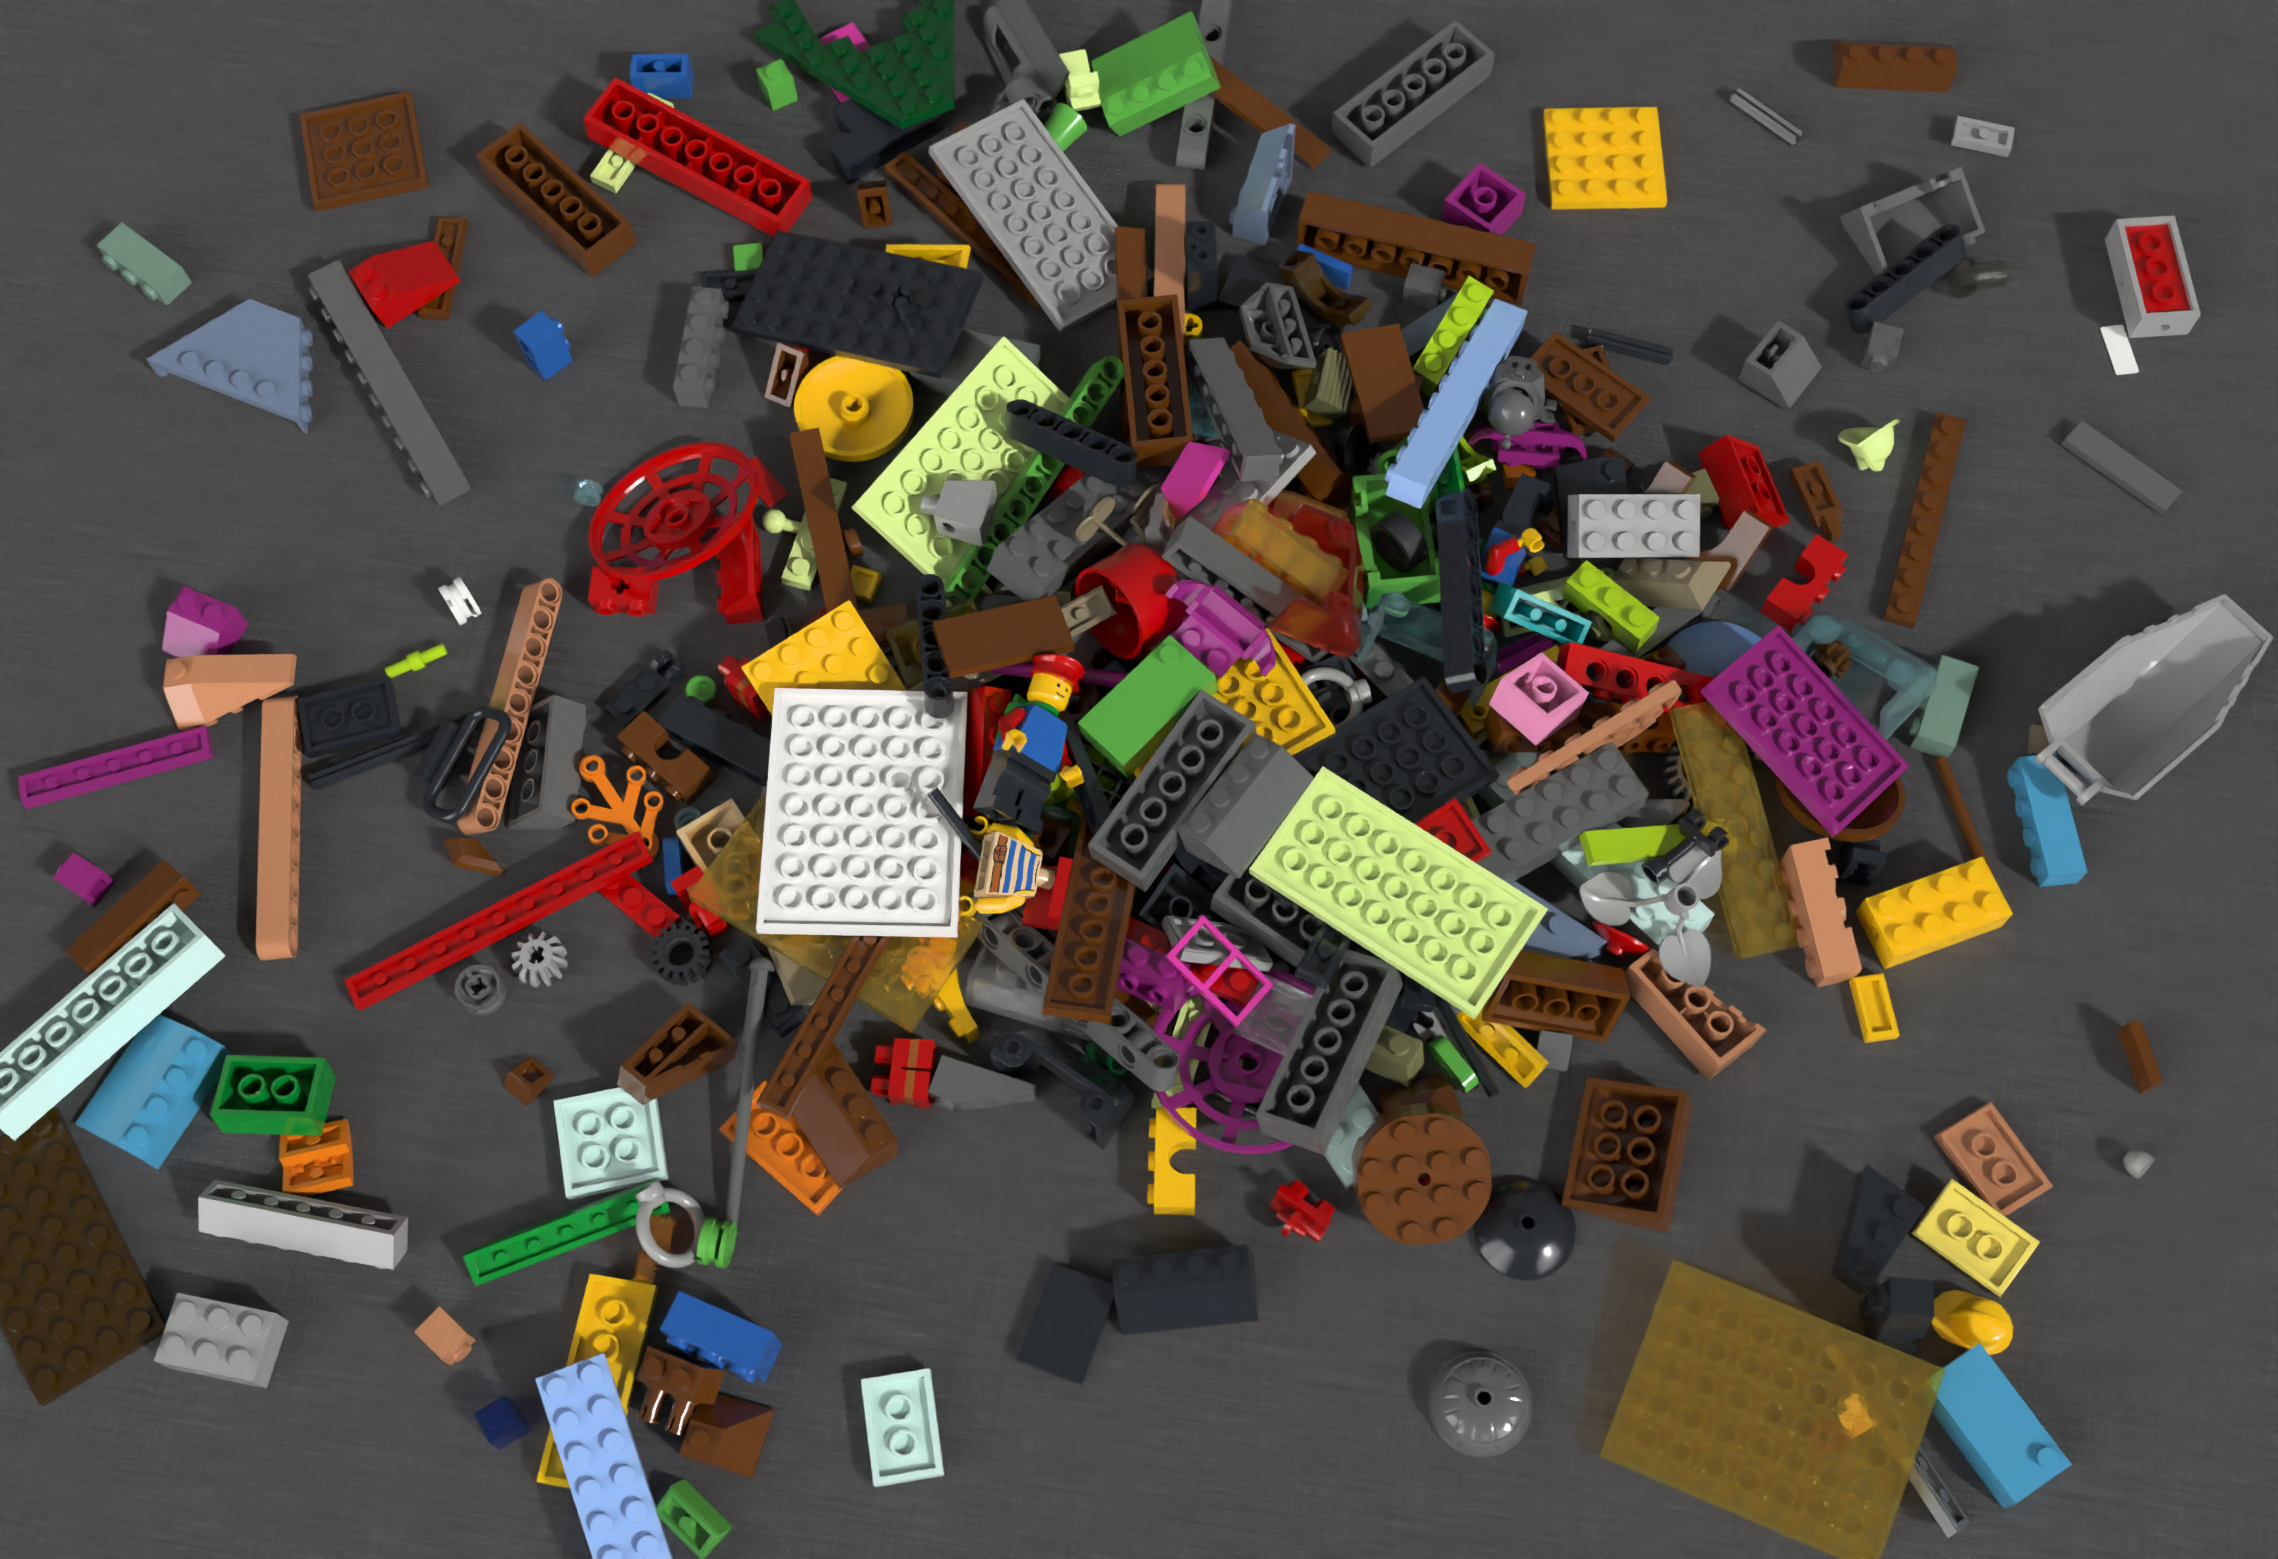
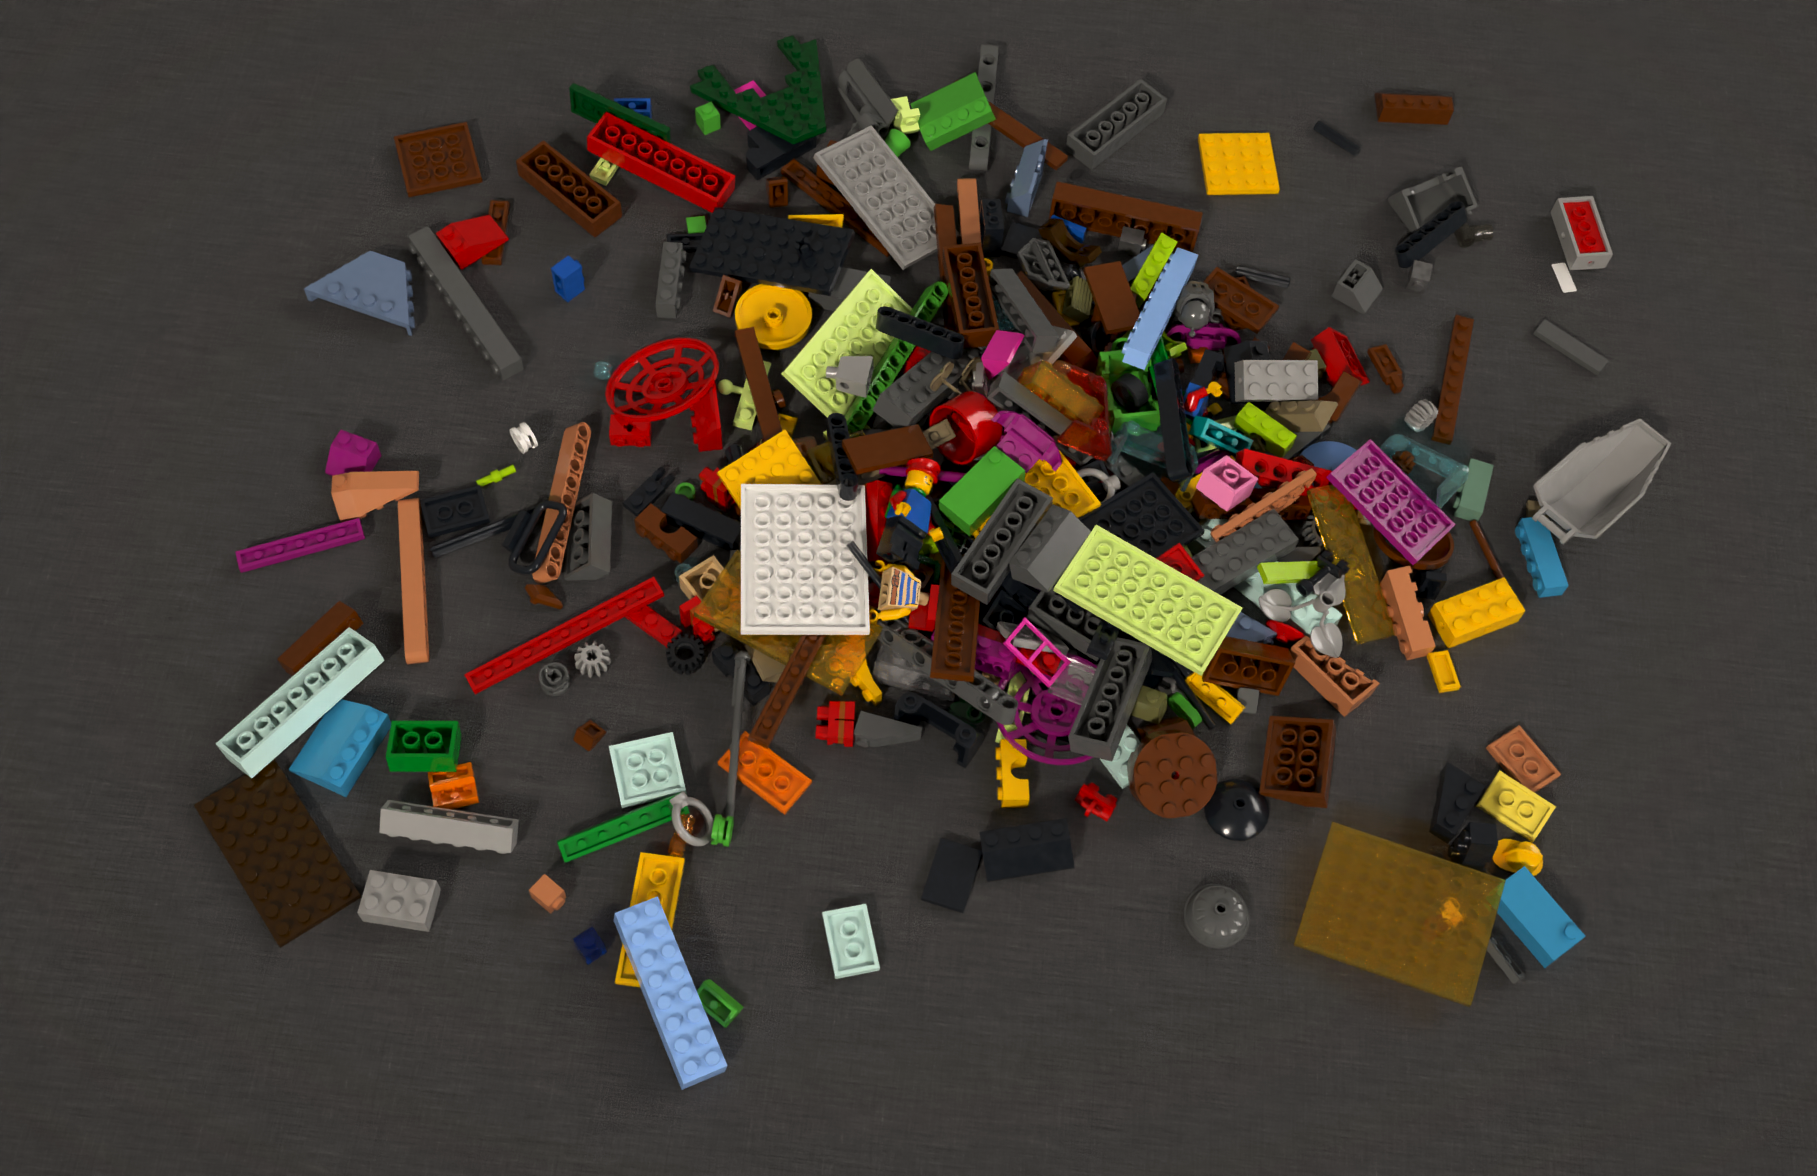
camera: 10 degrees left, 5 degrees down
(83, 879) = (284, 615): magenta brick -> none
(143, 264) = (295, 230): sand green brick -> none
(599, 68) = (593, 106): none -> dark green plate
(620, 812) = (639, 566): orange plant -> none
(673, 861) = (675, 597): blue beam -> none
(676, 1055) = (689, 714): reddish brown wedge -> none
(682, 1376) = (705, 911): reddish brown brick -> none
(721, 1338) = (731, 887): blue brick -> none
(727, 1435) = (737, 950): reddish brown slope -> none
(769, 487) = (724, 370): red sticker -> none
(843, 1122) = (800, 754): reddish brown slope -> none
(1484, 202) = (1166, 188): magenta brick -> none
(1790, 602) = (1390, 407): red arch -> none
(1867, 581) = (1421, 415): none -> light grey gear
(1870, 444) = (1416, 335): yellowish green helmet -> none
(1982, 136) = (1471, 150): light grey plate -> none
(2137, 1162) = (1611, 758): light grey hinge -> none
(2140, 1056) = (1608, 695): reddish brown tile -> none

